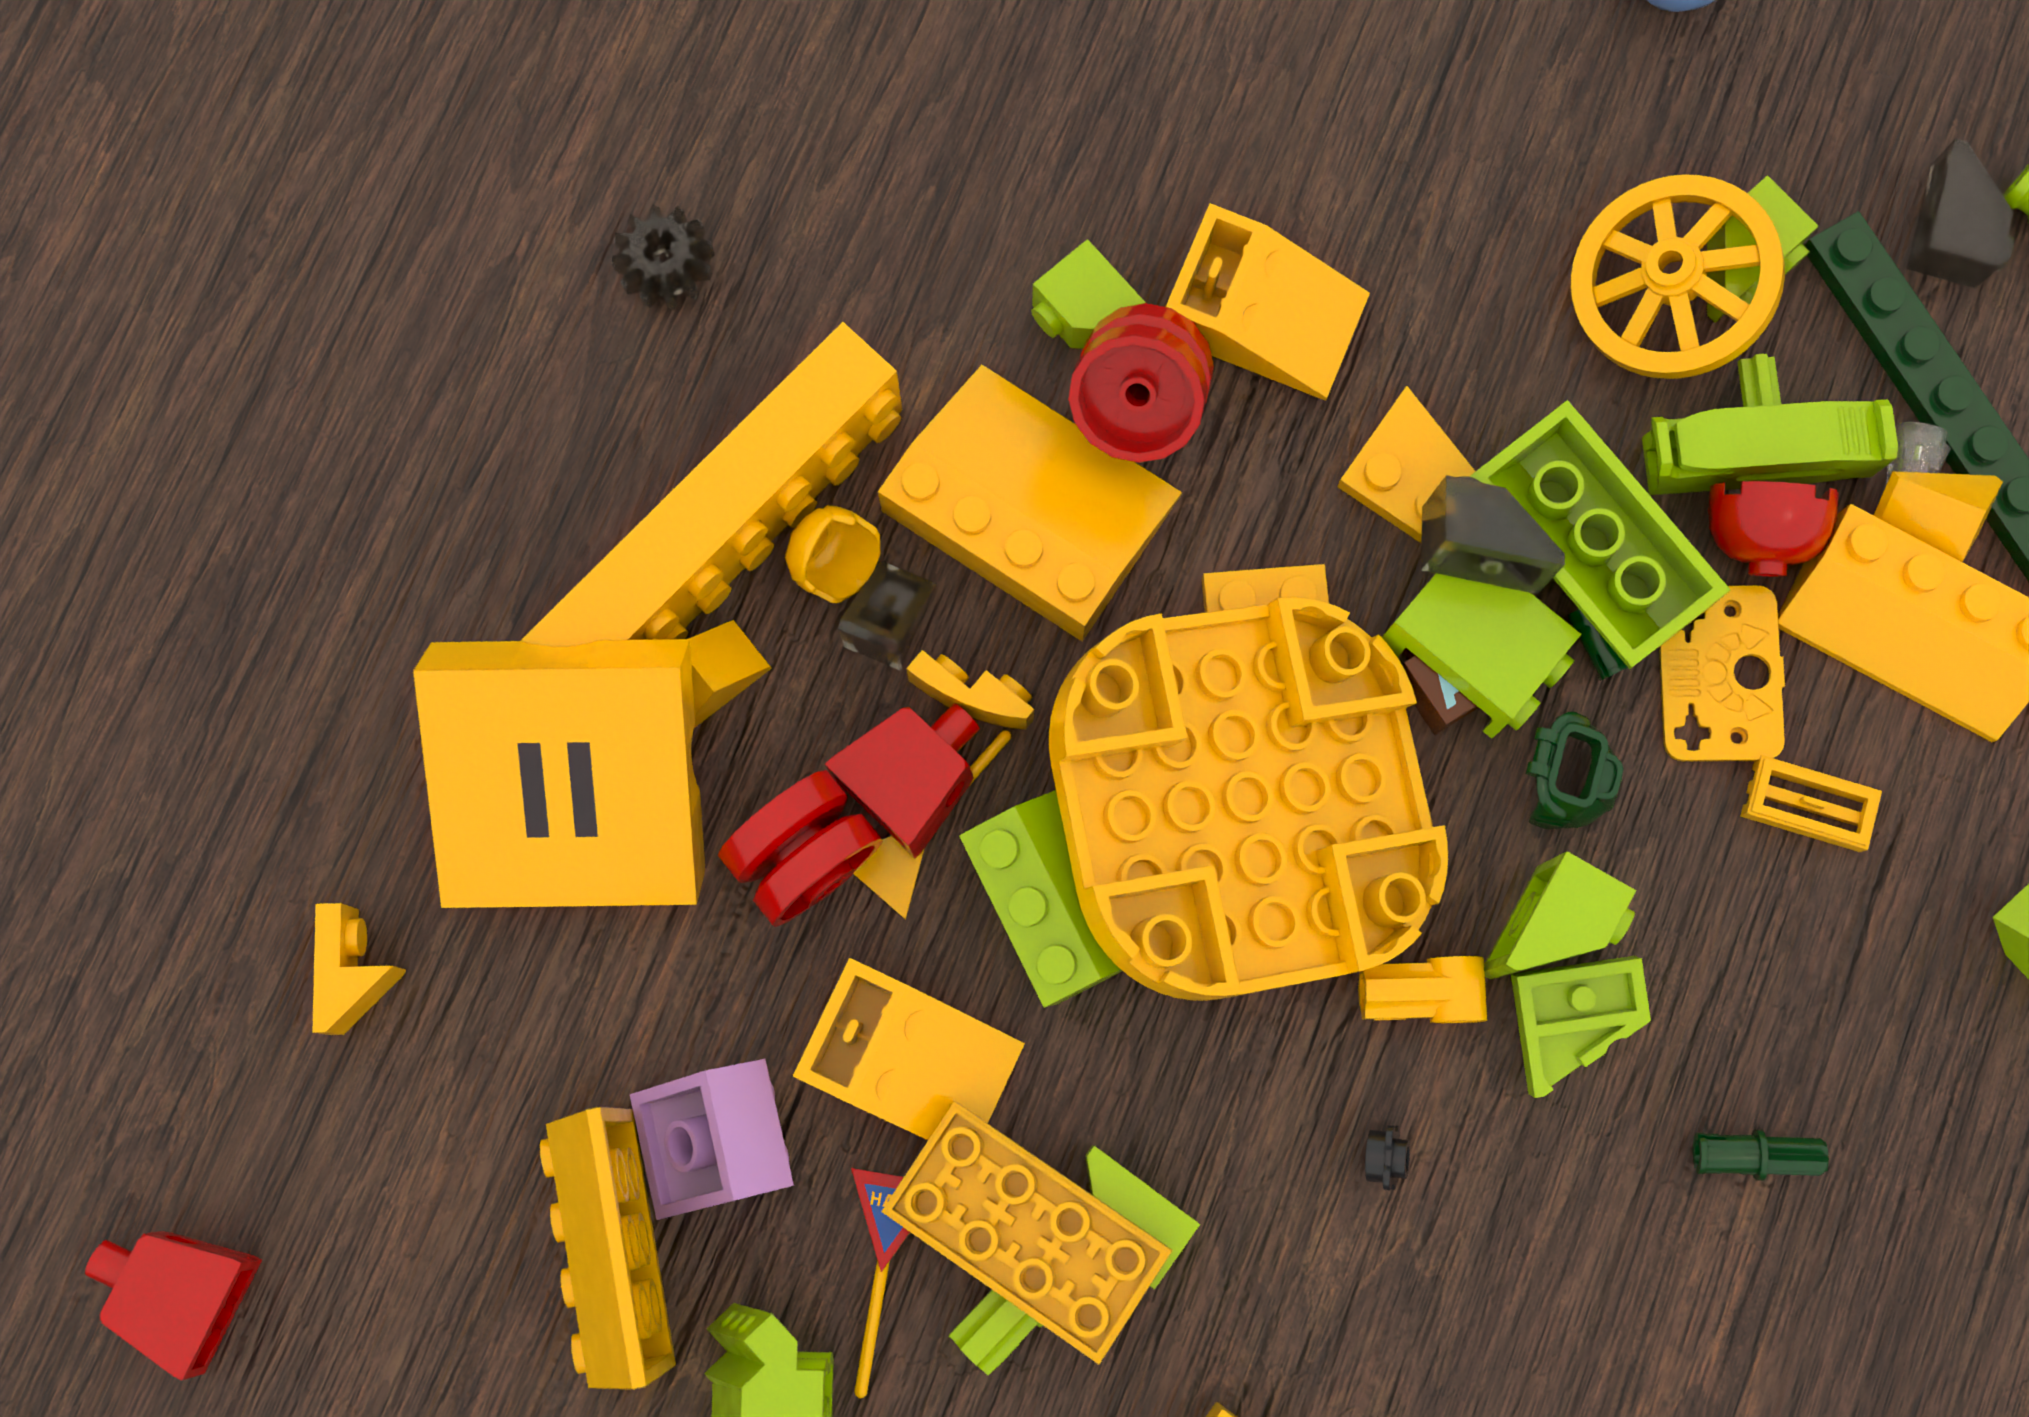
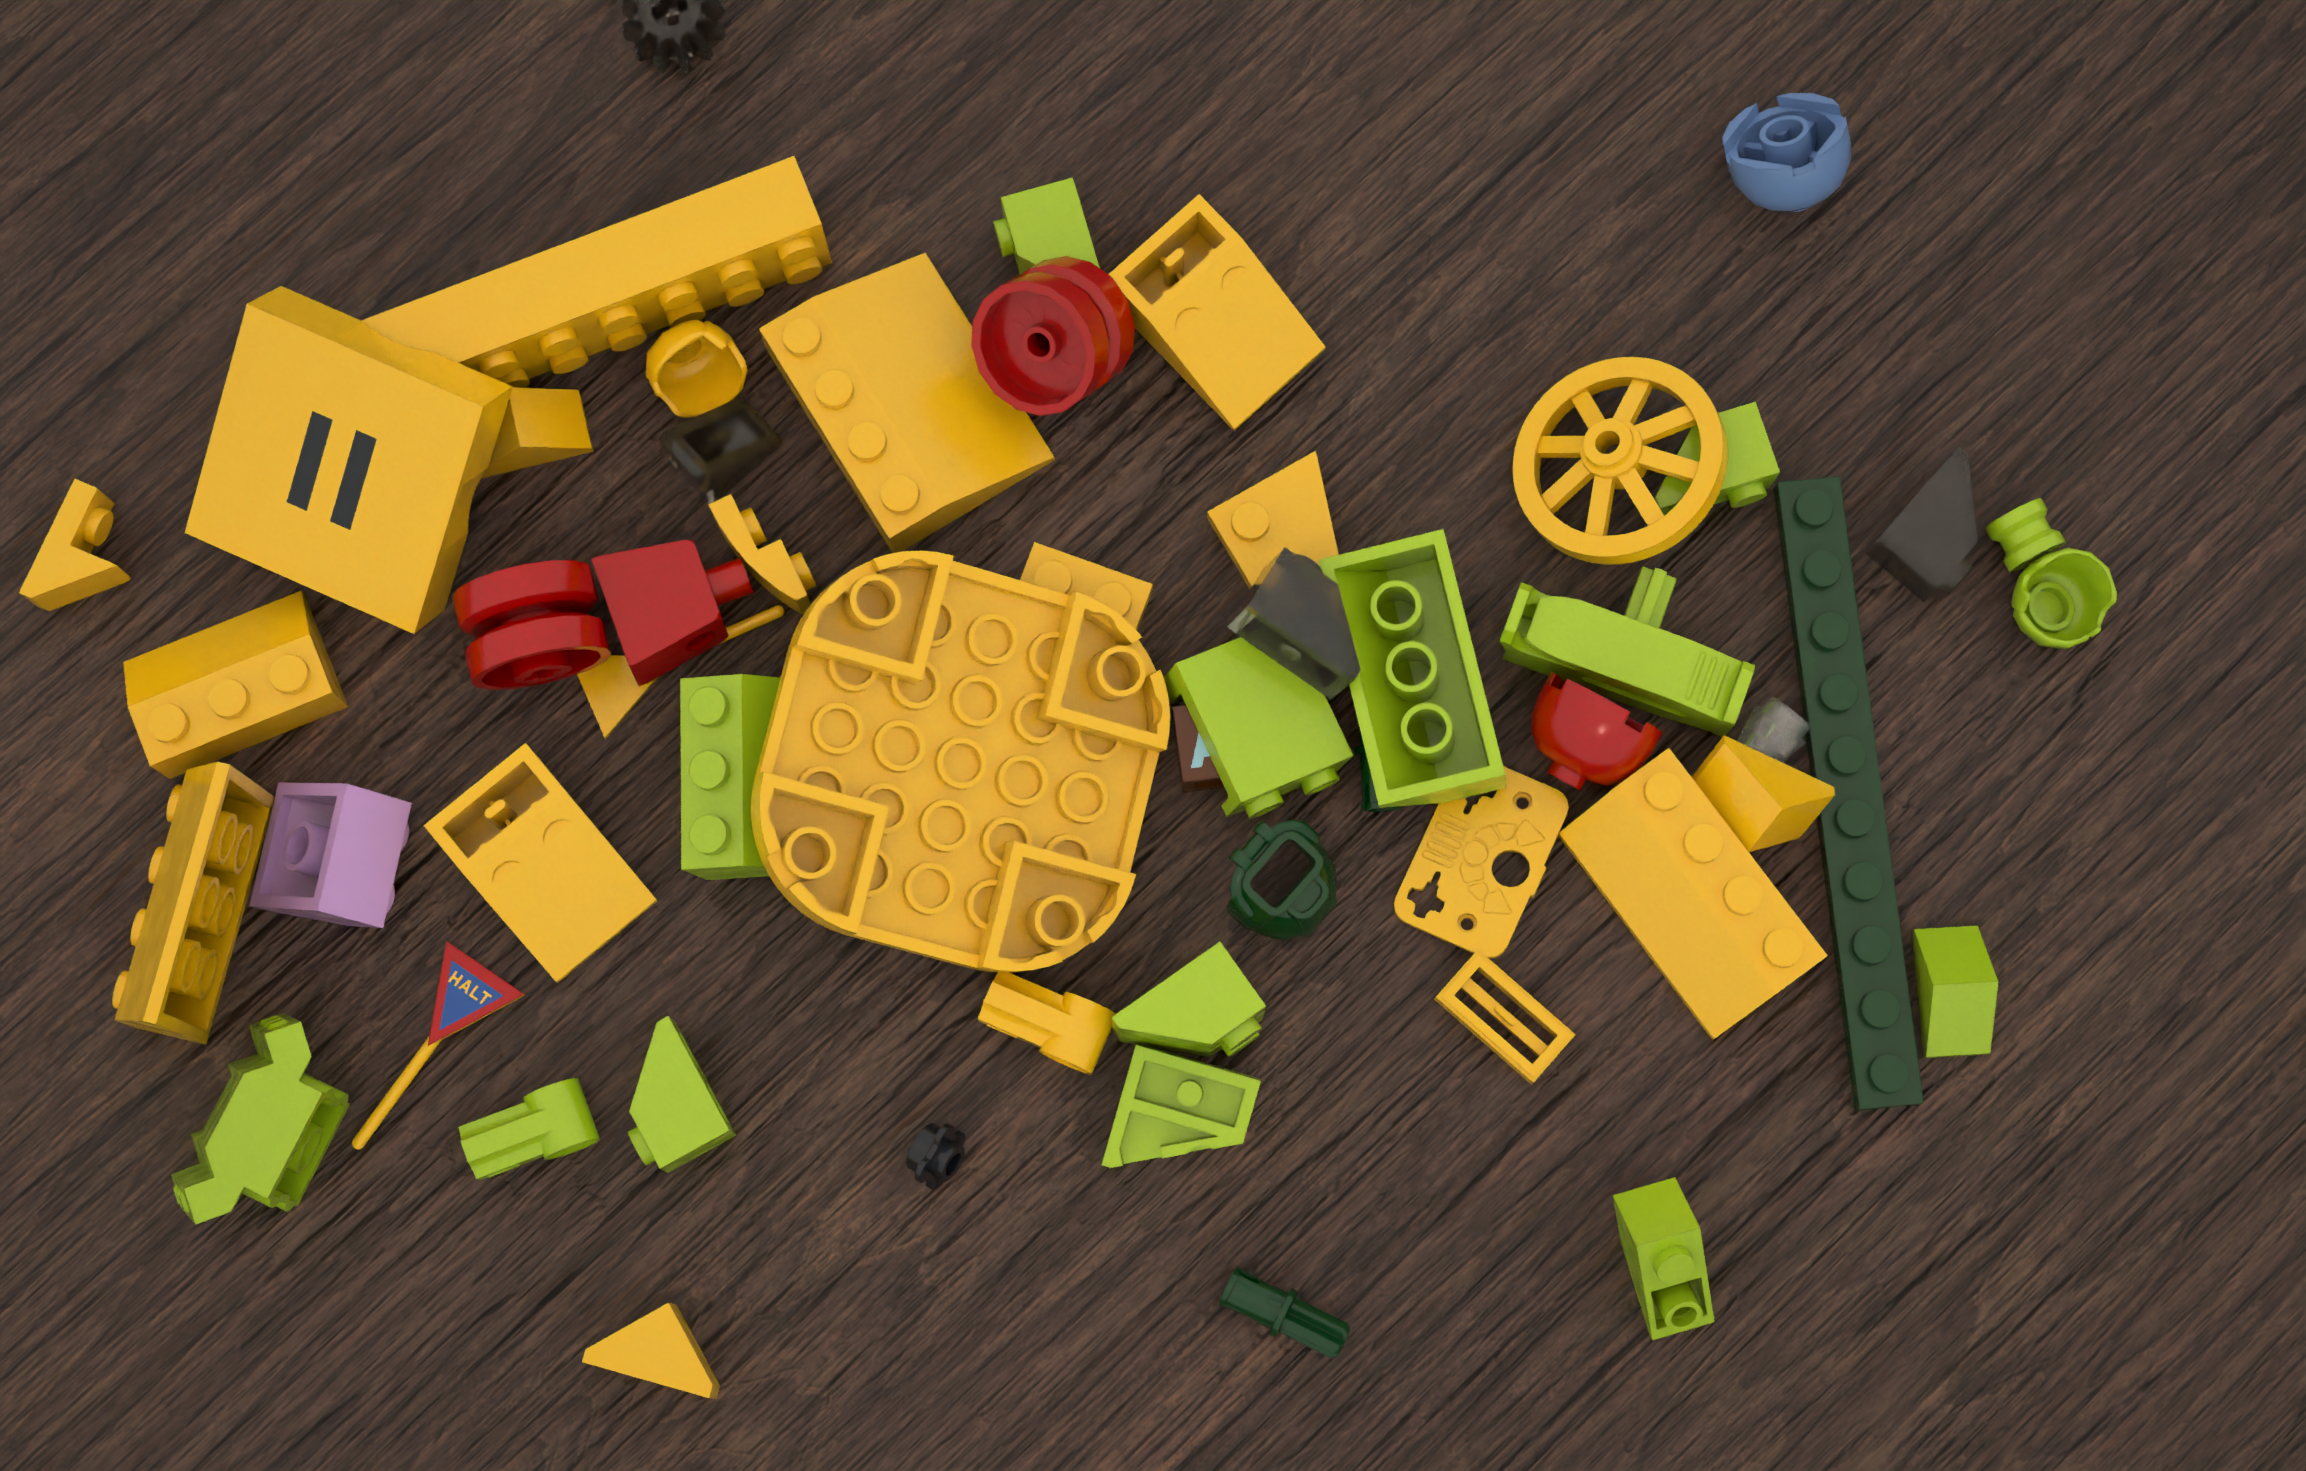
camera: 25 degrees right, 0 degrees up
(545, 1026) = (231, 686): none -> yellow slope
(1027, 1232) = (569, 1063): yellow tile -> none

